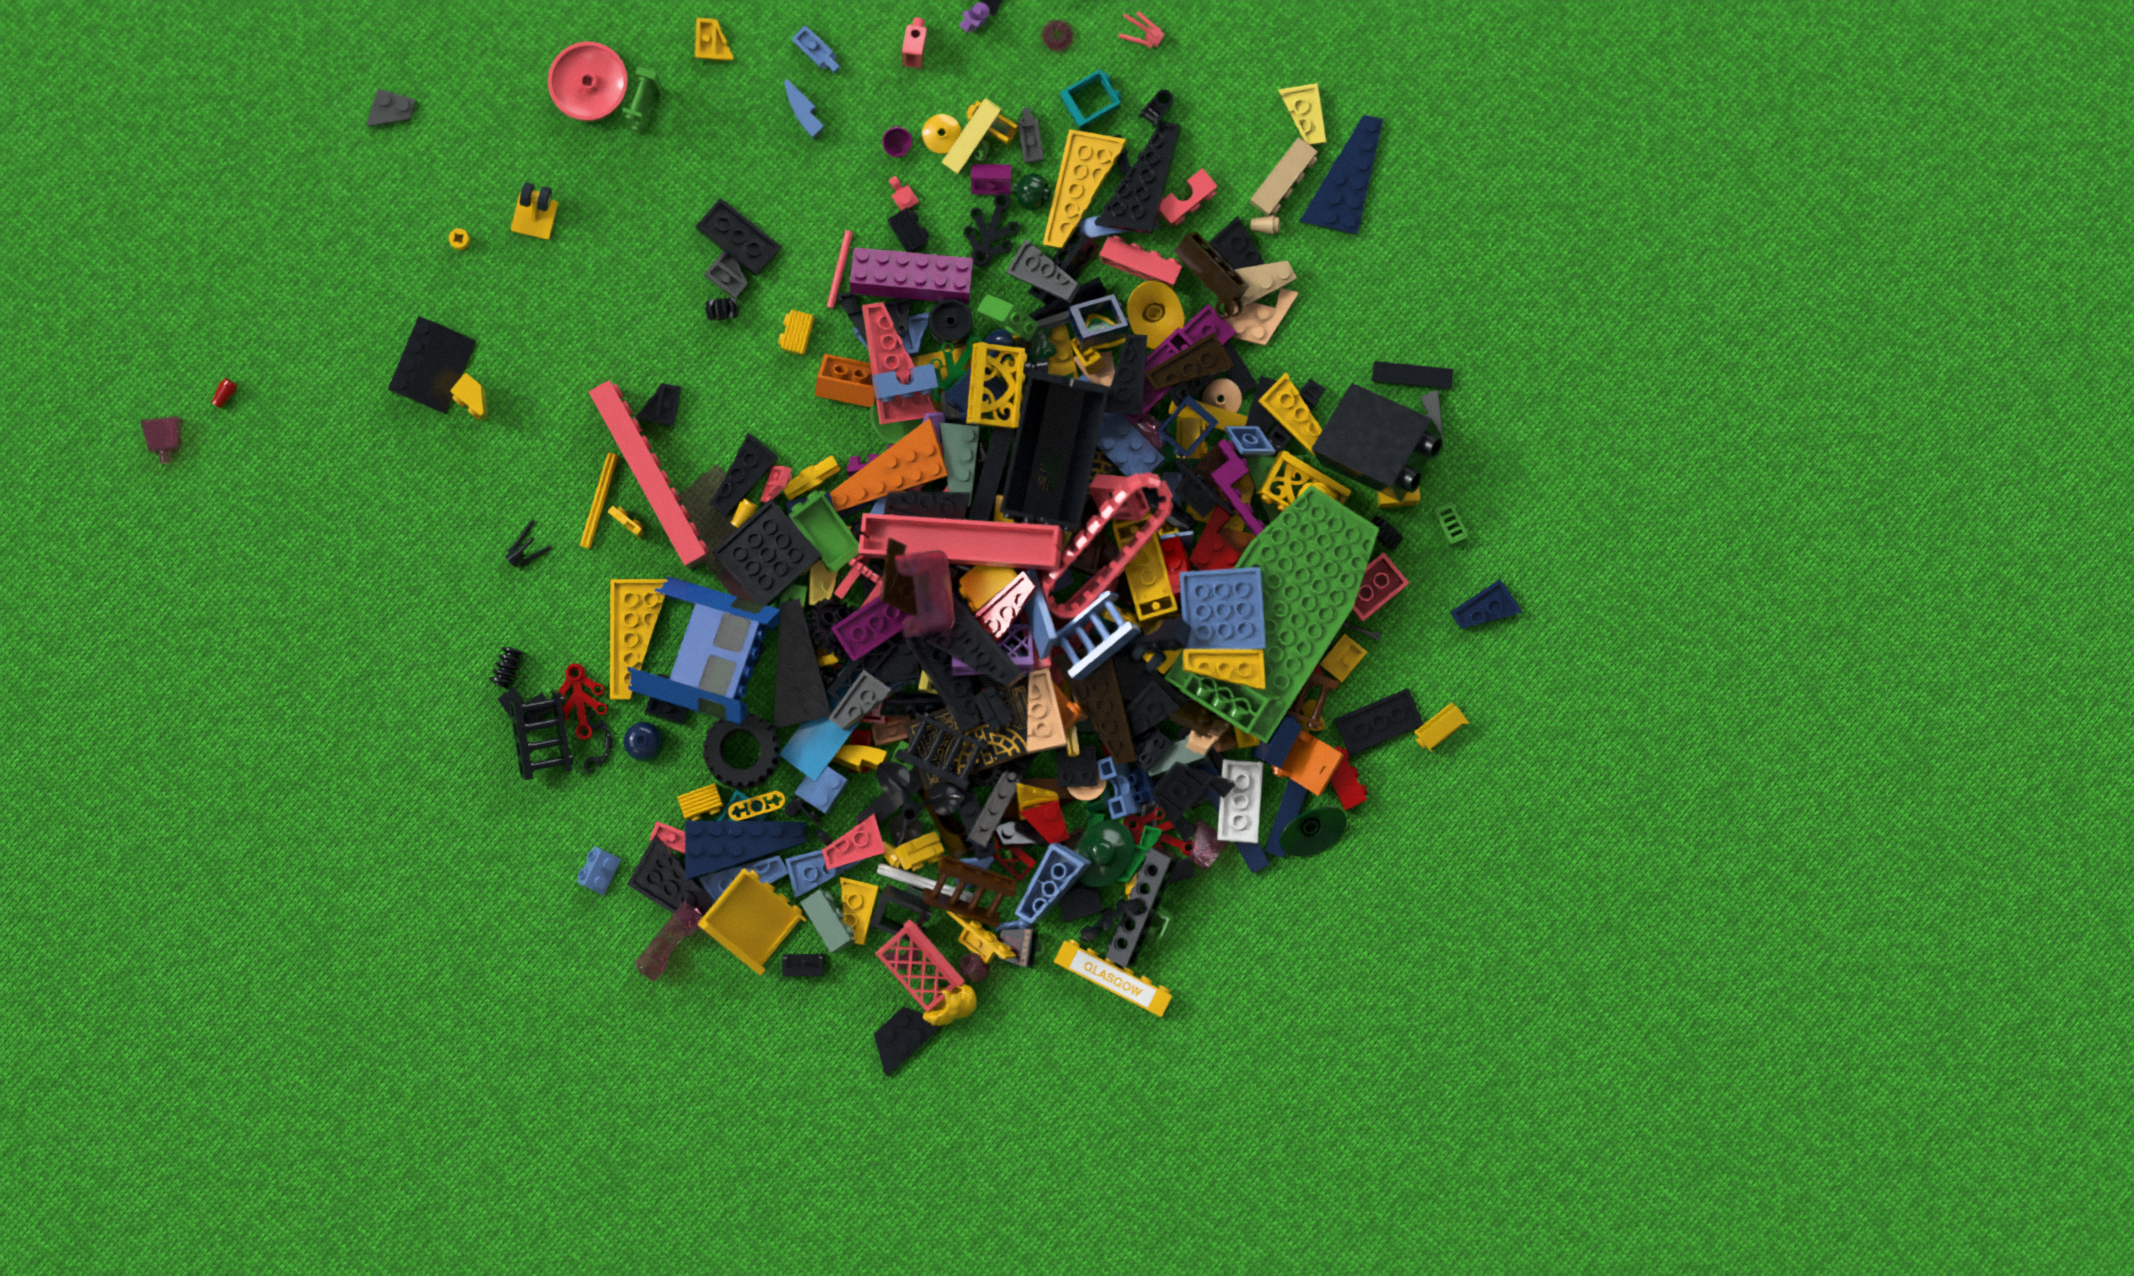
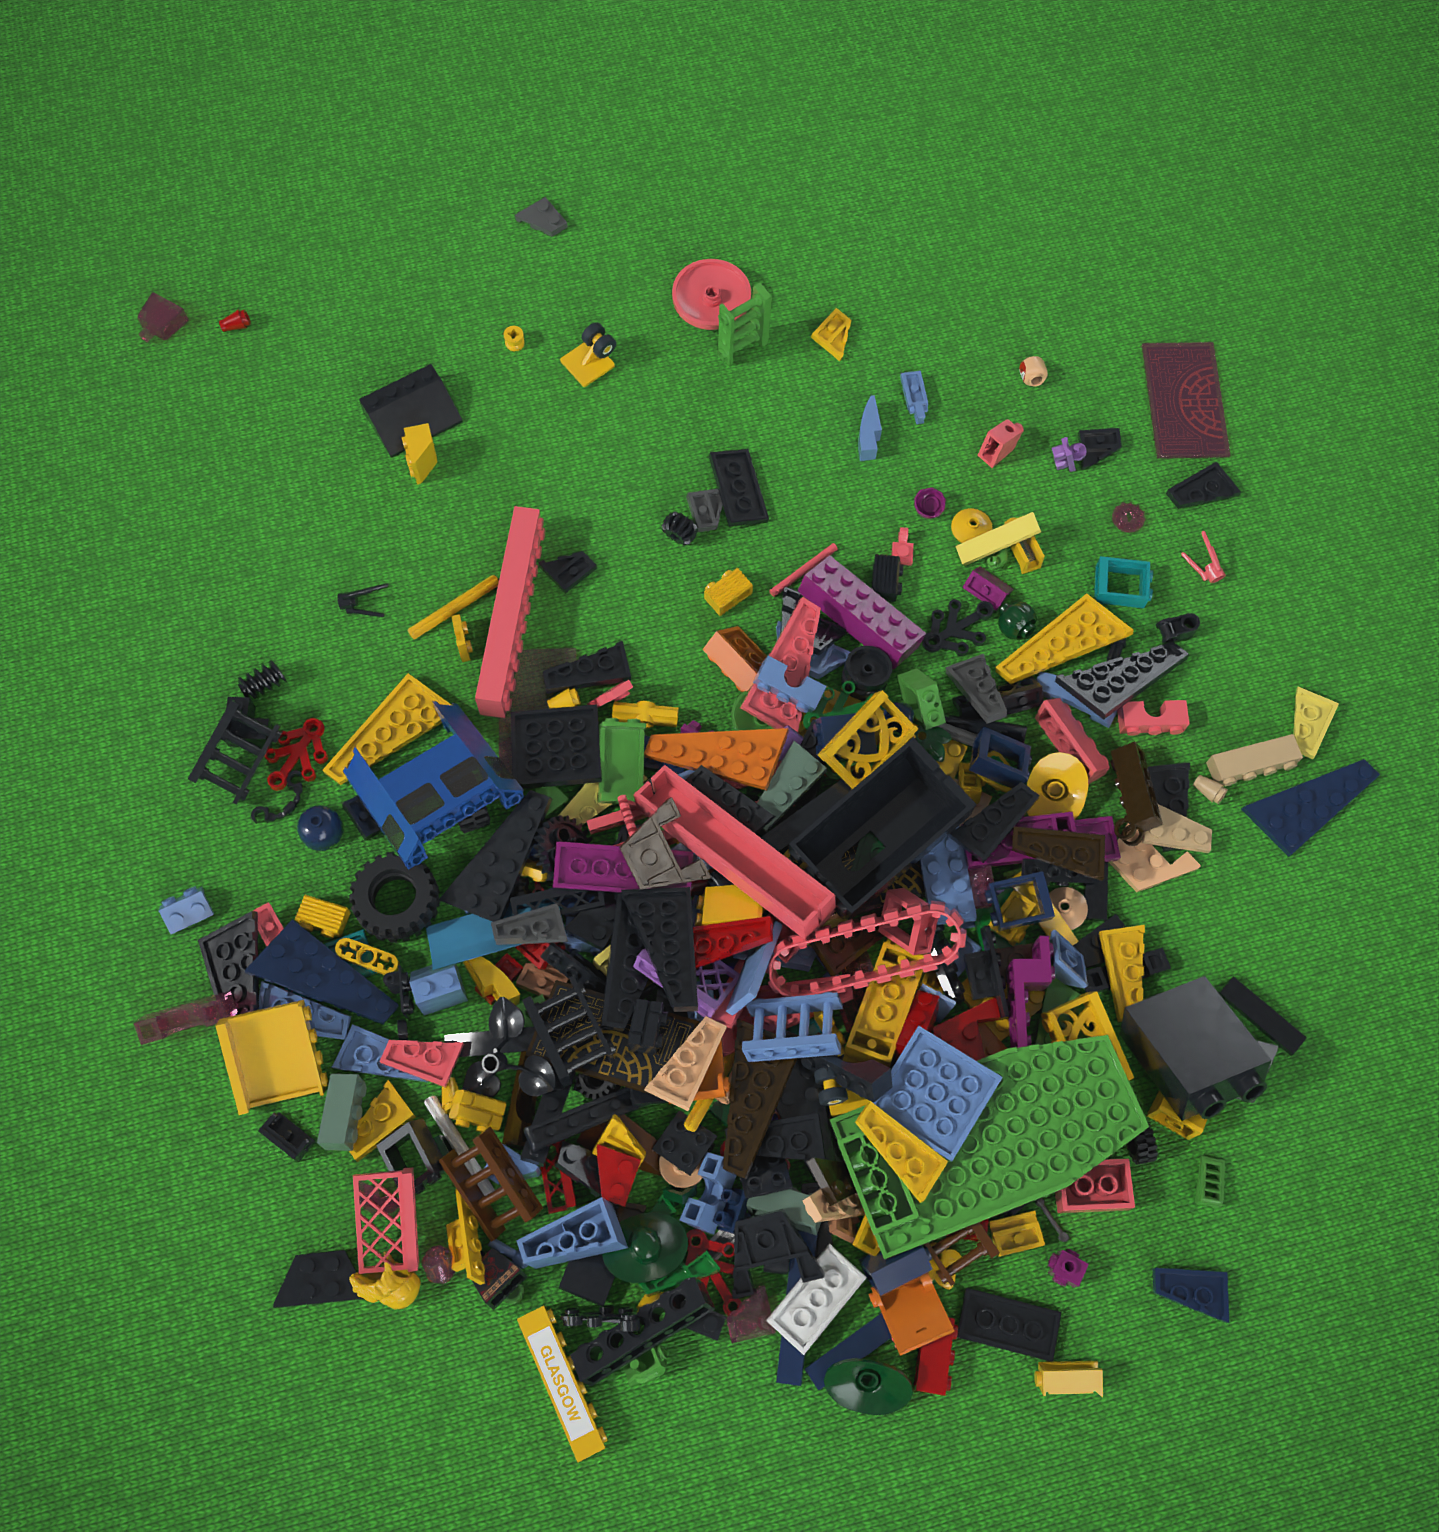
camera: 30 degrees right, 15 degrees down
(932, 591) = (669, 869): clear pink windscreen -> none
(1030, 137) = (1046, 578): dark grey hinge -> none
(1397, 651) = (1075, 1268): none -> magenta brick

